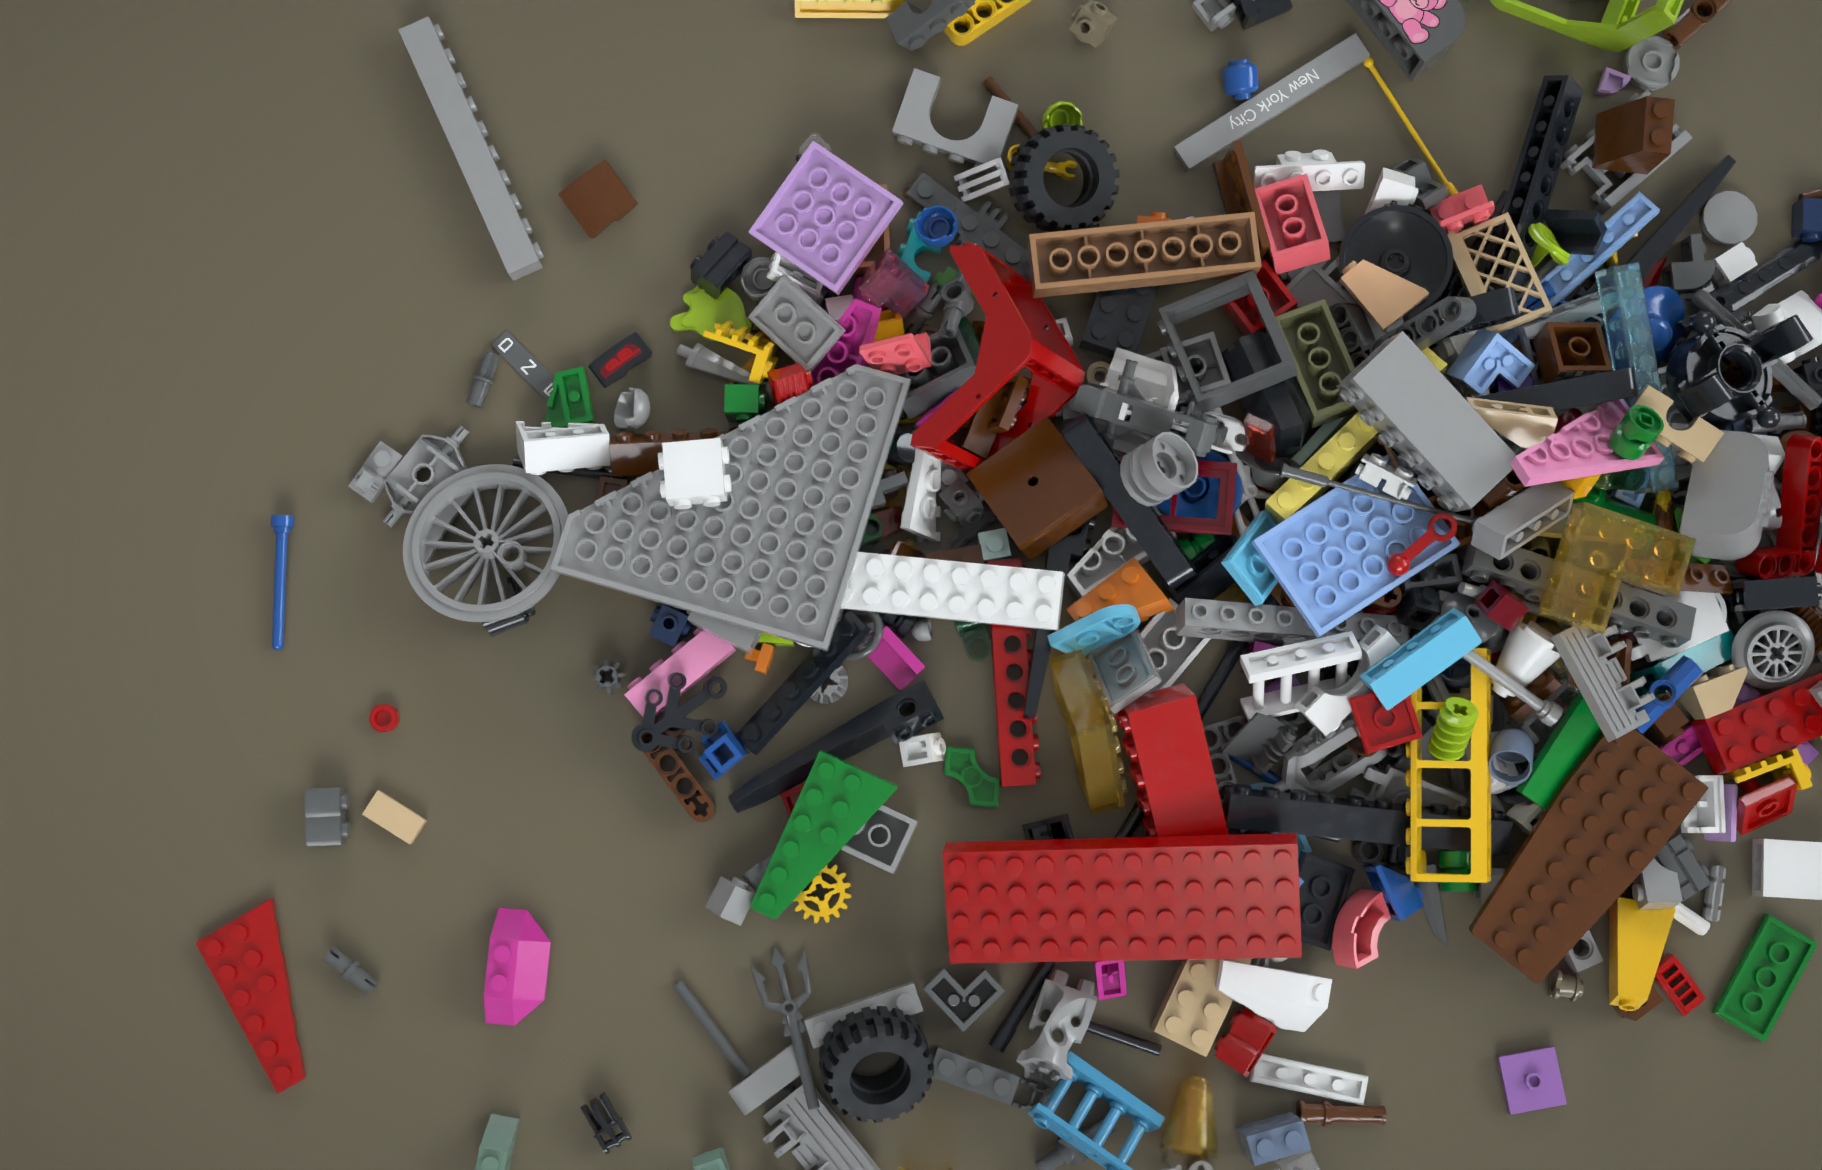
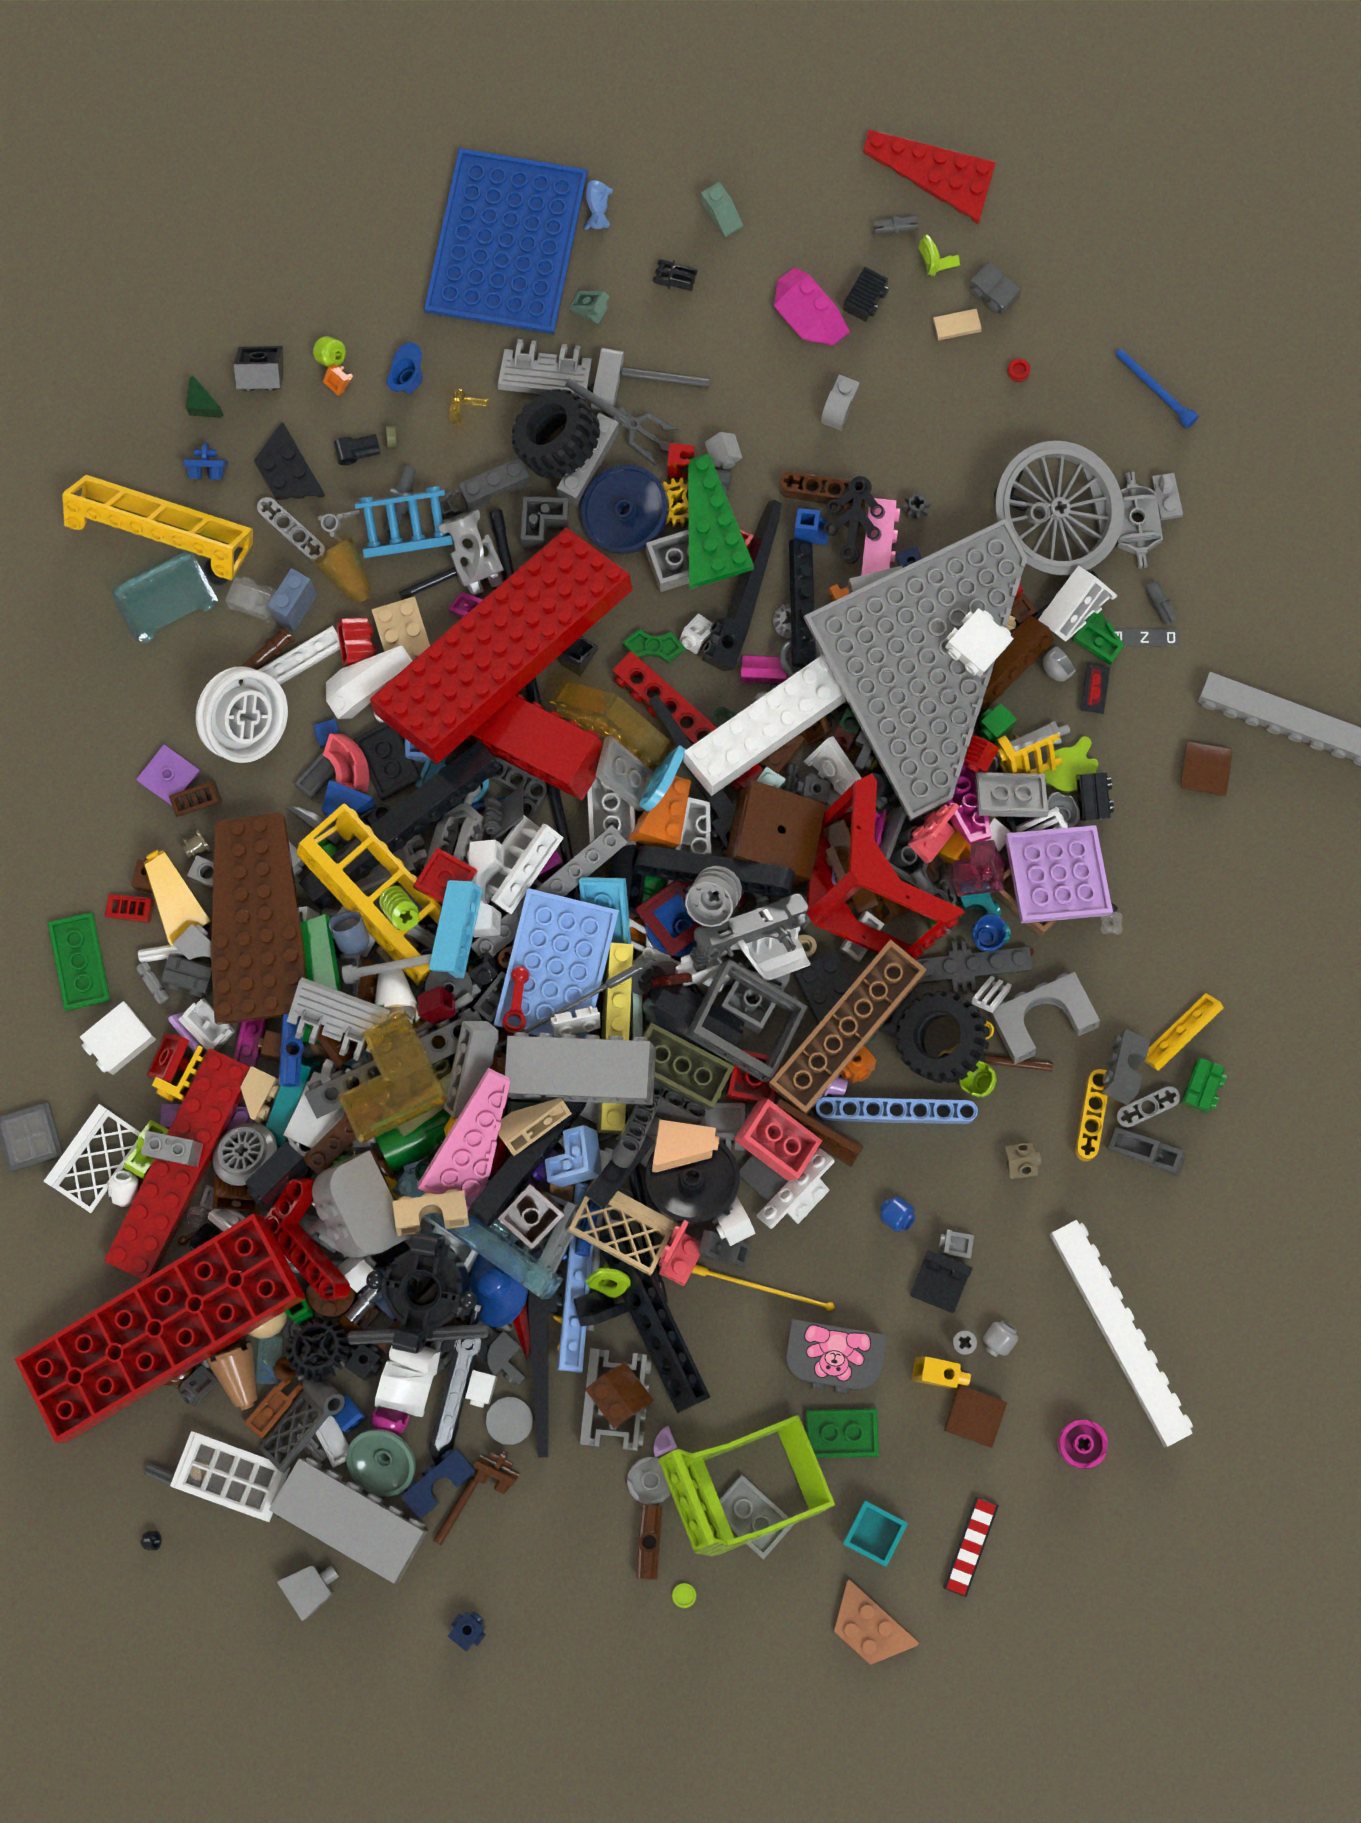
camera: 145 degrees right, 5 degrees down
(353, 900) = (932, 259): none -> lime piece
(448, 927) = (865, 294): none -> black brick
(578, 842) = (839, 402): none -> light grey brick
(785, 930) = (677, 458): none -> red hinge
(877, 930) = (624, 509): none -> dark blue dish
(1152, 151) = (907, 1106): none -> light blue beam
(1271, 102) = (864, 1222): light grey tile -> none
(1347, 980) = (324, 729): none -> blue tile
(1398, 948) = (315, 776): none -> dark grey tile
(1425, 1066) = (244, 718): none -> white wheel
(1508, 1025) = (214, 793): none -> reddish brown slope
(1636, 432) = (449, 1178): green wheel -> none
(1779, 185) = (498, 1468): none -> reddish brown hips

